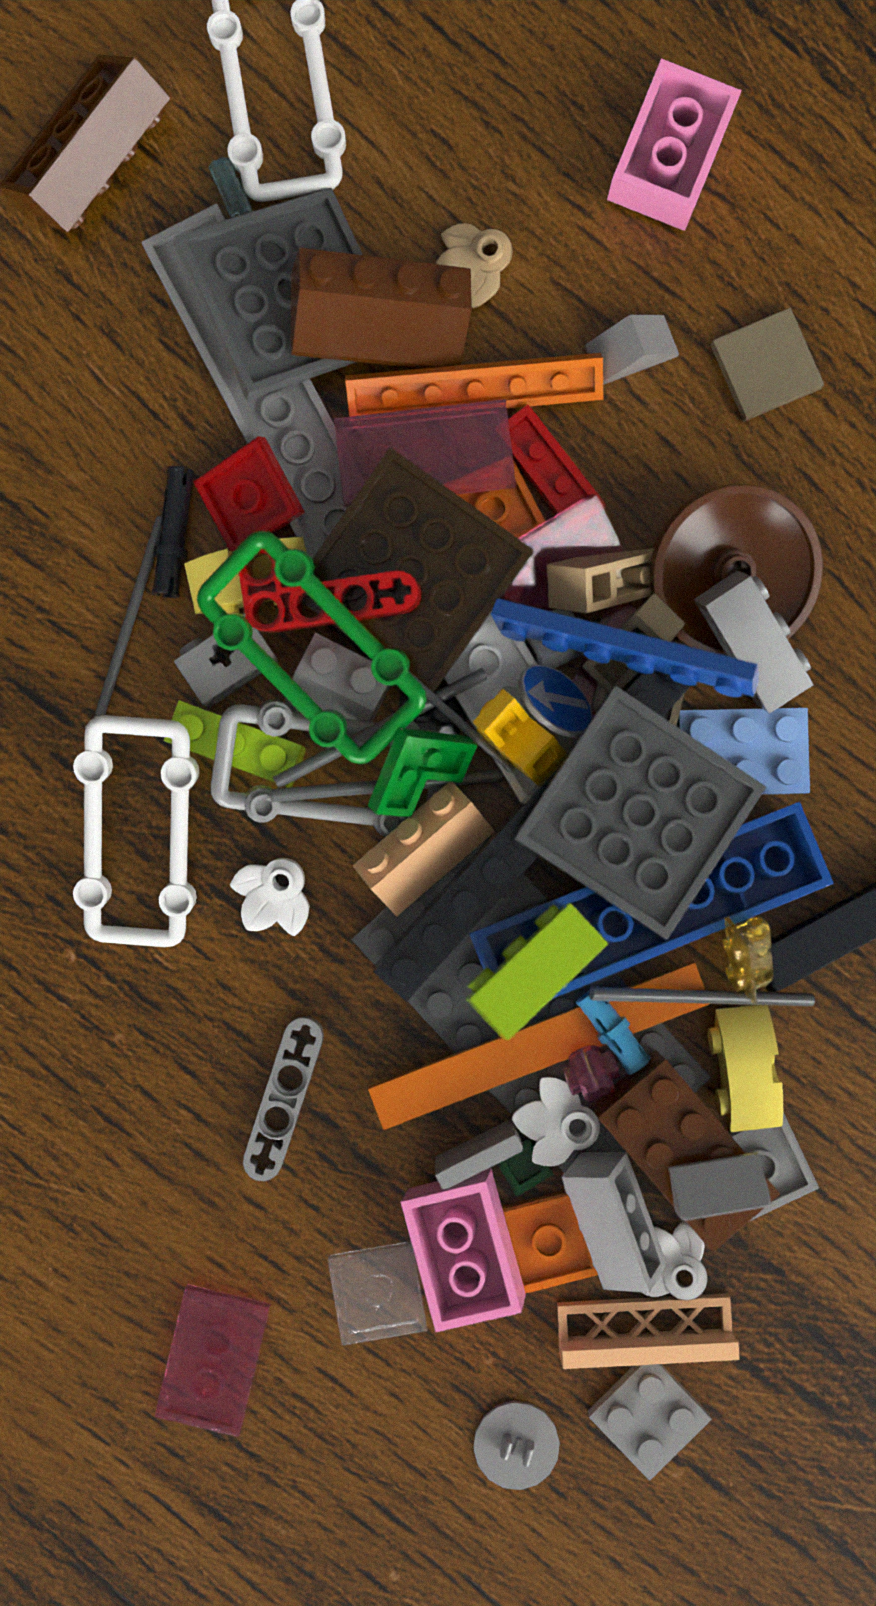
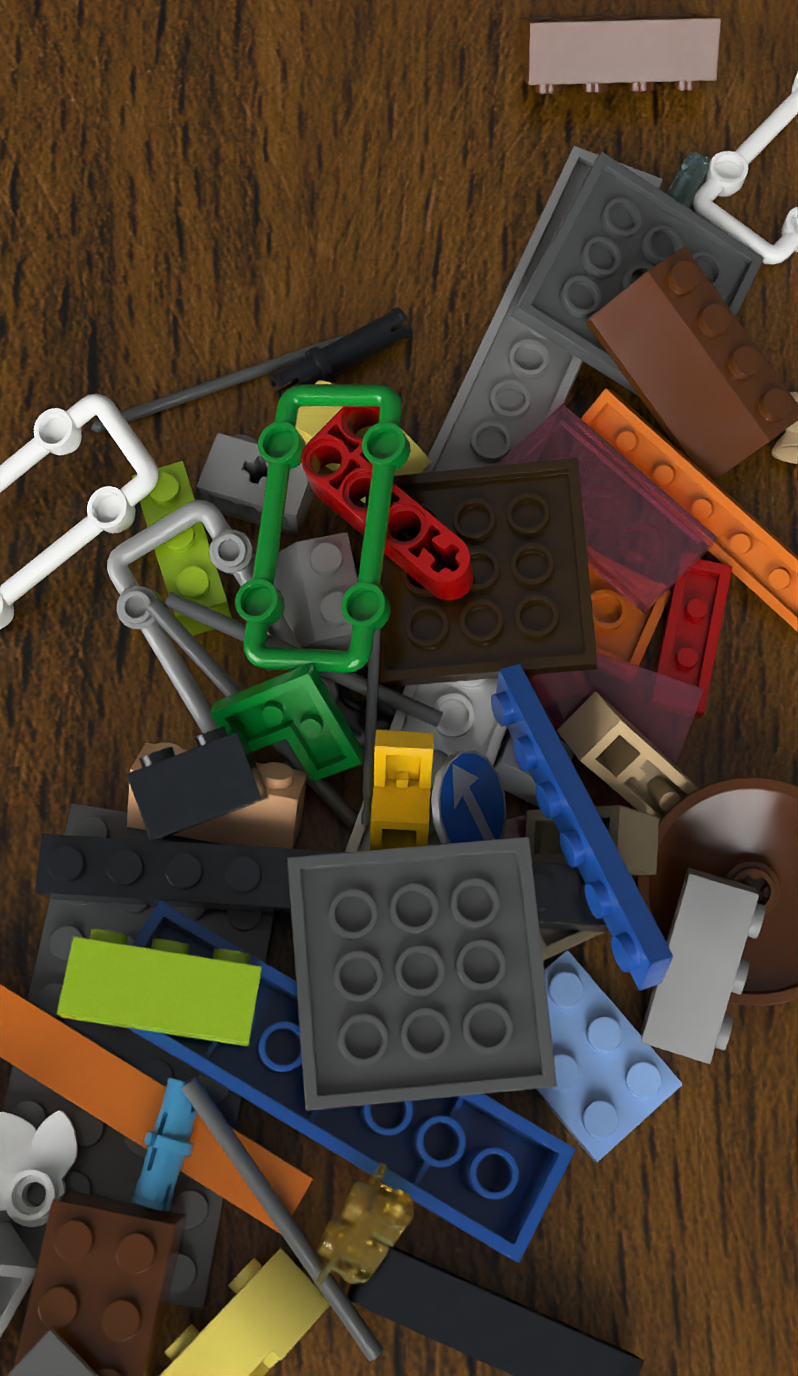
camera: 55 degrees right, 15 degrees down
(248, 493) = (436, 387): red tile -> none
(268, 900) = (54, 699): white plate -> none
(418, 856) = (197, 784): none -> black brick
(591, 1073) = (103, 1158): clear pink gear -> none

